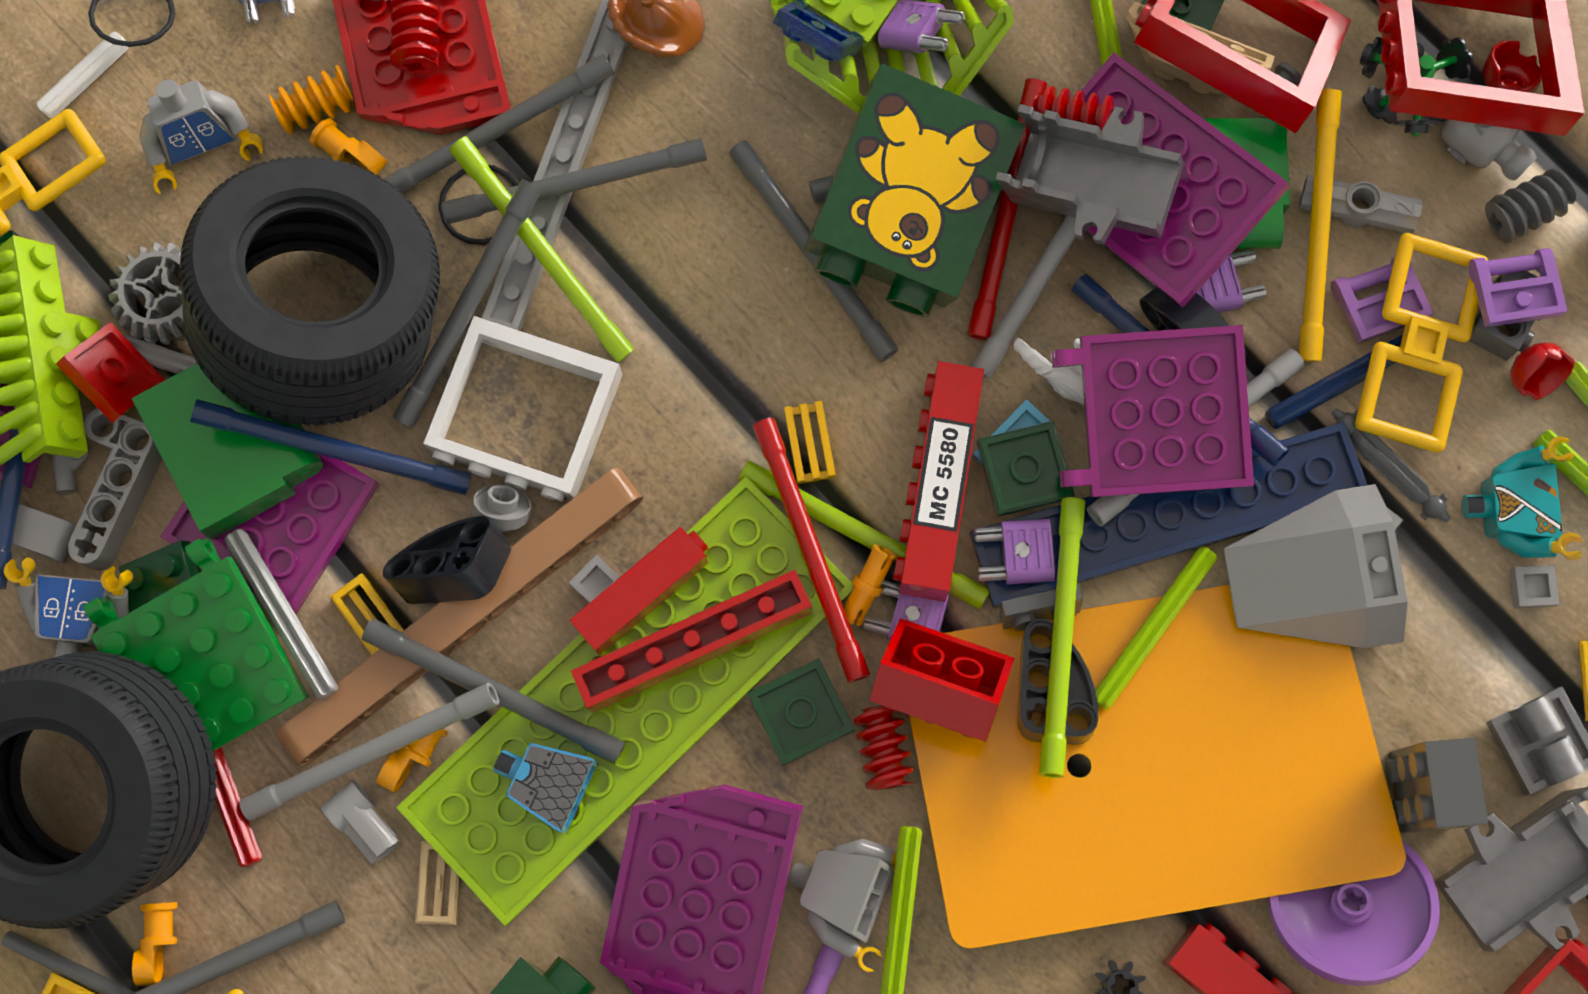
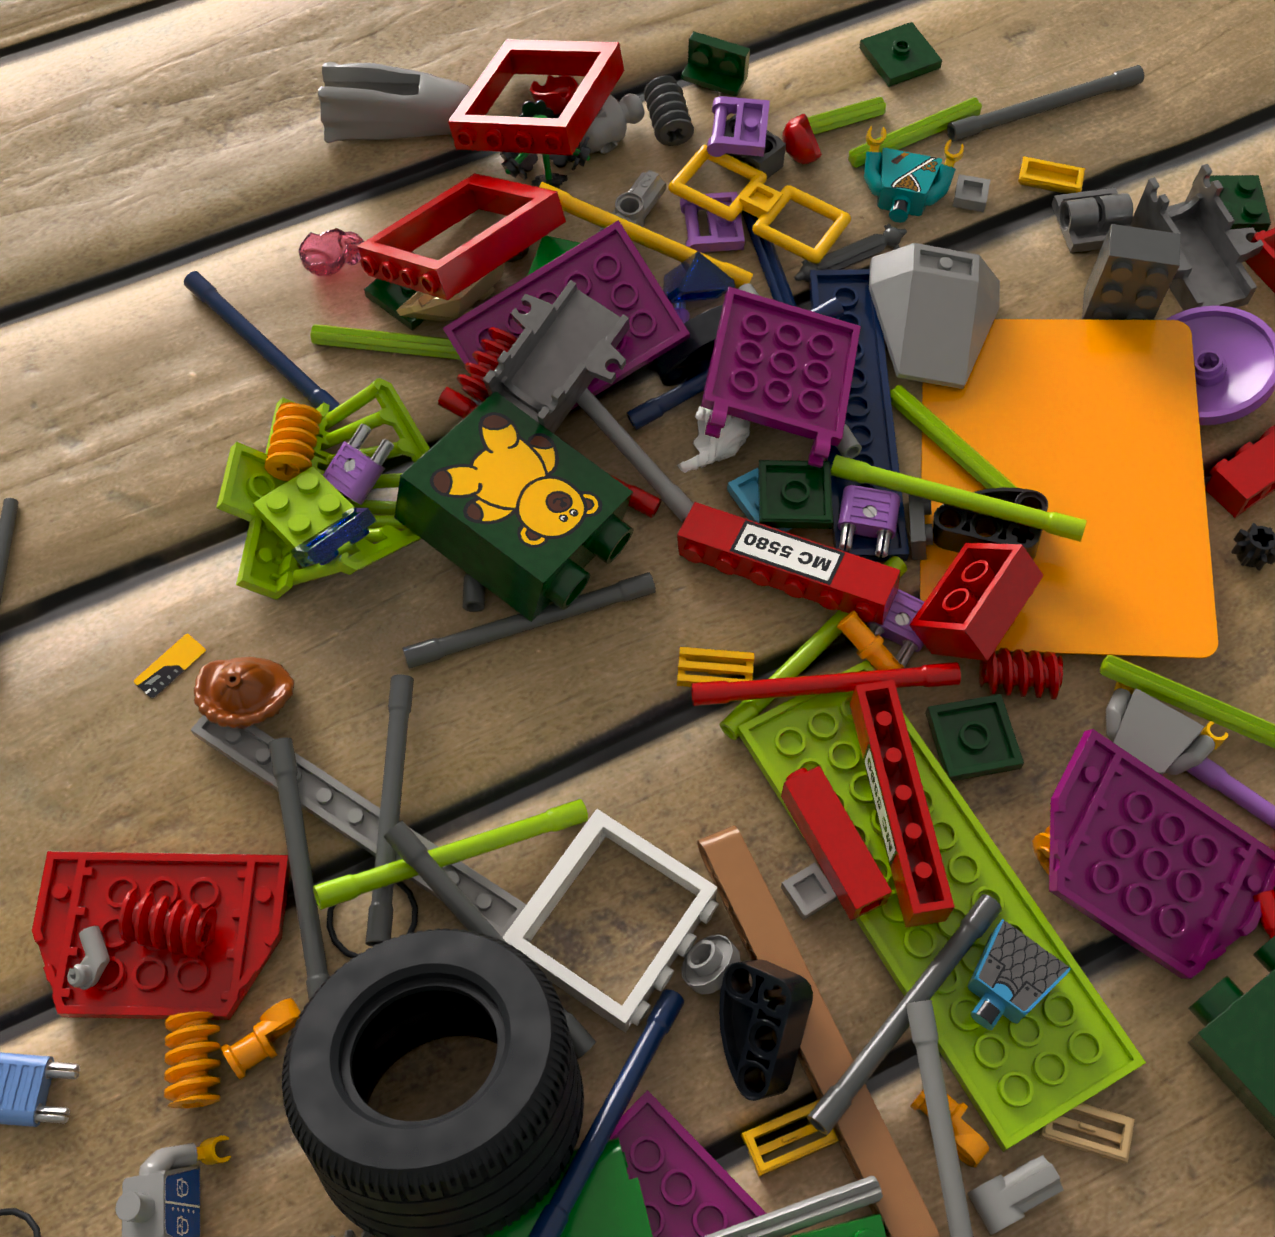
camera: 80 degrees left, 15 degrees down
(1277, 294) = (696, 280): none -> clear blue slope

